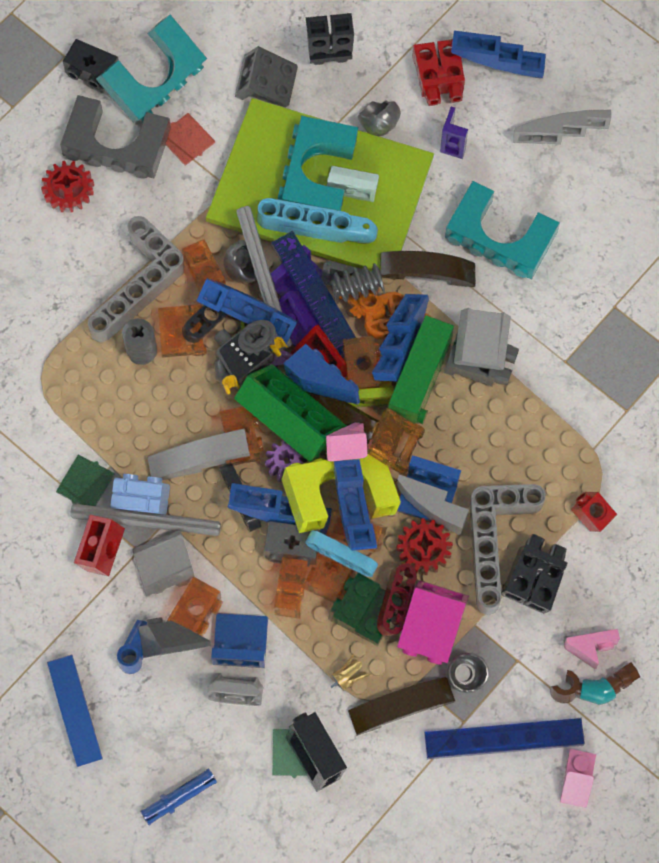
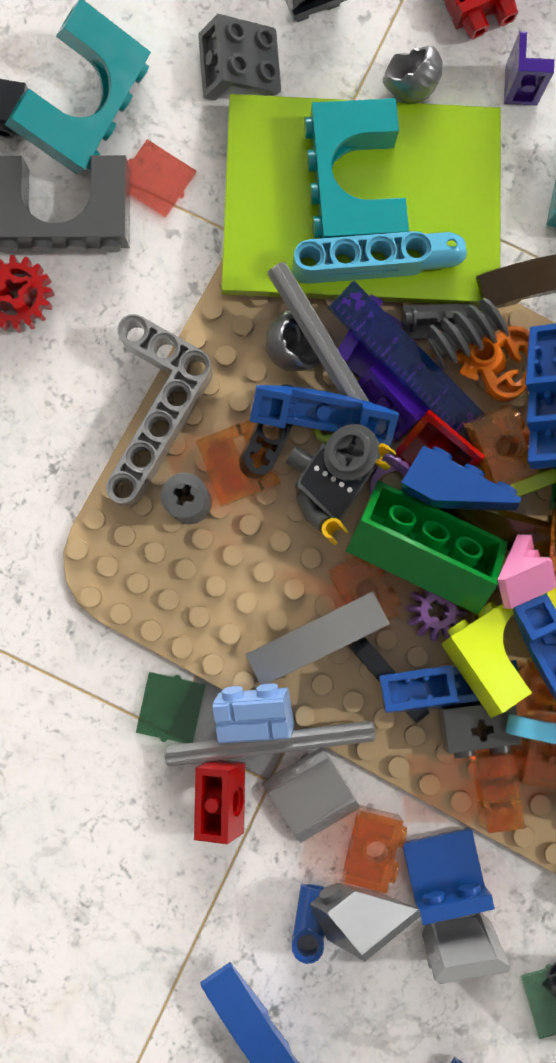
camera: 15 degrees left, 15 degrees up
(201, 264) = (240, 363): clear orange brick -> none
(355, 183) = (415, 181): light aqua panel -> none

